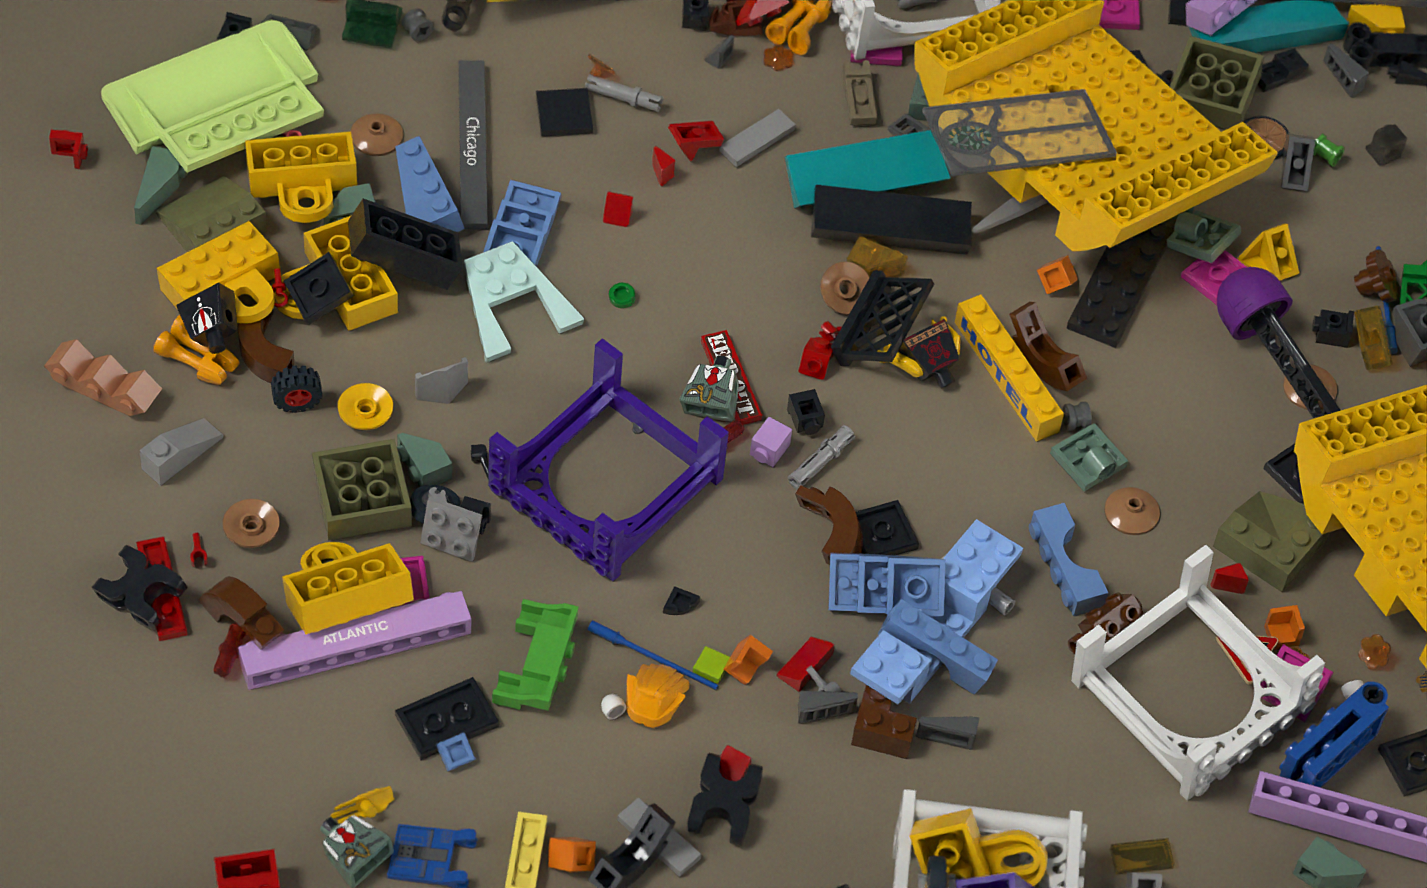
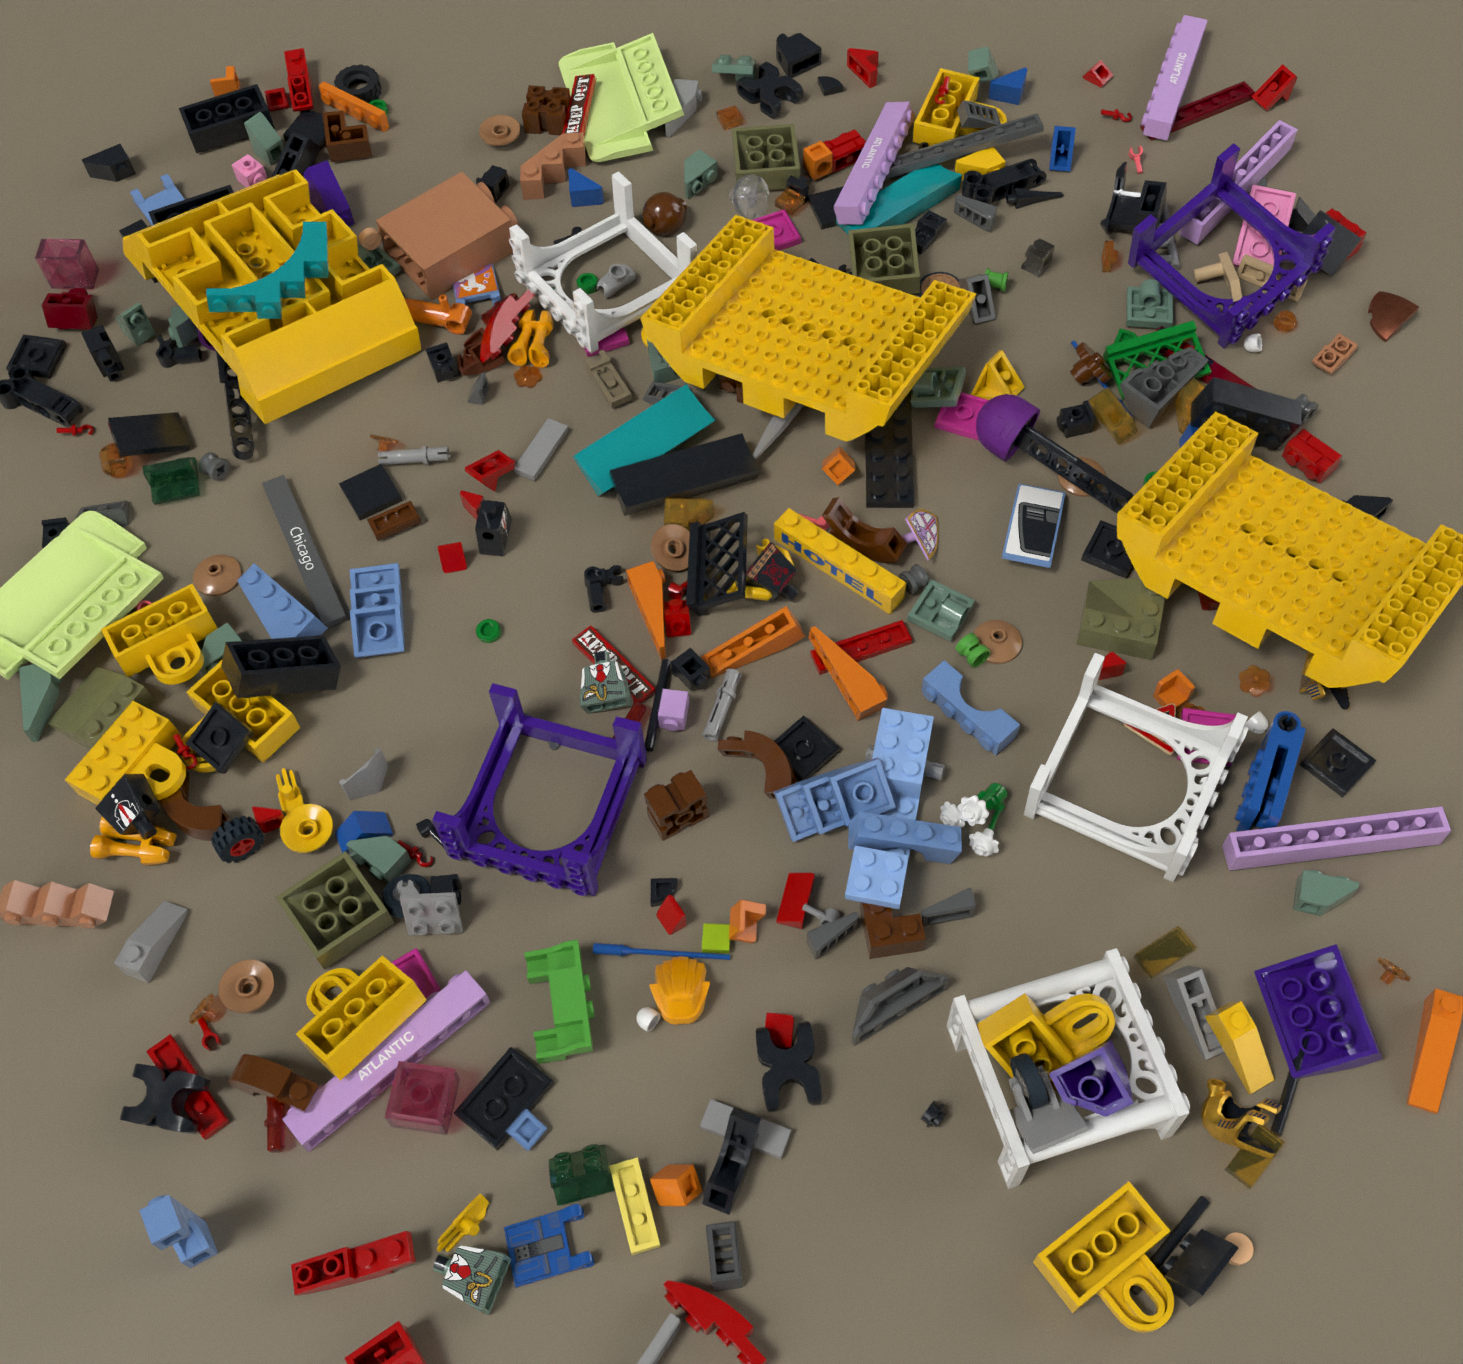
camera: 15 degrees left, 5 degrees up
(114, 693) = (175, 1225): none -> medium blue arch
(203, 529) = (203, 1010): none -> clear orange plant
(252, 797) = (353, 1265): none -> red slope
(332, 382) = (268, 818): none -> red slope
(359, 370) = (288, 796): none -> yellow piece
(373, 683) = (422, 1097): none -> clear pink brick
(419, 424) = (362, 826): none -> blue slope
(458, 471) = (414, 852): none -> red hand
(488, 809) = (580, 1174): none -> clear green bracket
(502, 276) = (379, 657): light aqua wing -> none
(575, 150) = (394, 520): none -> reddish brown plate
(678, 189) = (492, 519): none -> black torso
(678, 626) = (671, 915): none -> red slope
(730, 528) = (676, 804): none -> reddish brown brick
(745, 447) = (654, 722): none -> black bar
(751, 289) = (595, 580): none -> black bar
(800, 322) = (648, 592): none -> orange slope
(854, 785) = (895, 998): none -> dark grey wedge
(884, 412) = (756, 642): none -> orange slope
(963, 487) = (853, 681): none -> orange slope
(989, 460) = (870, 644): none -> red tile
(1007, 323) = (820, 522): none -> coral hand
(1013, 646) = (975, 811): none -> white plant
(1018, 132) = (758, 360): clear piece -> none
(1101, 510) = (972, 650): none -> bright green wheel
(1111, 371) = (924, 530): none -> shield
(1111, 616) = (1033, 743): reddish brown brick -> none
(1229, 413) = (1033, 525): none -> slope

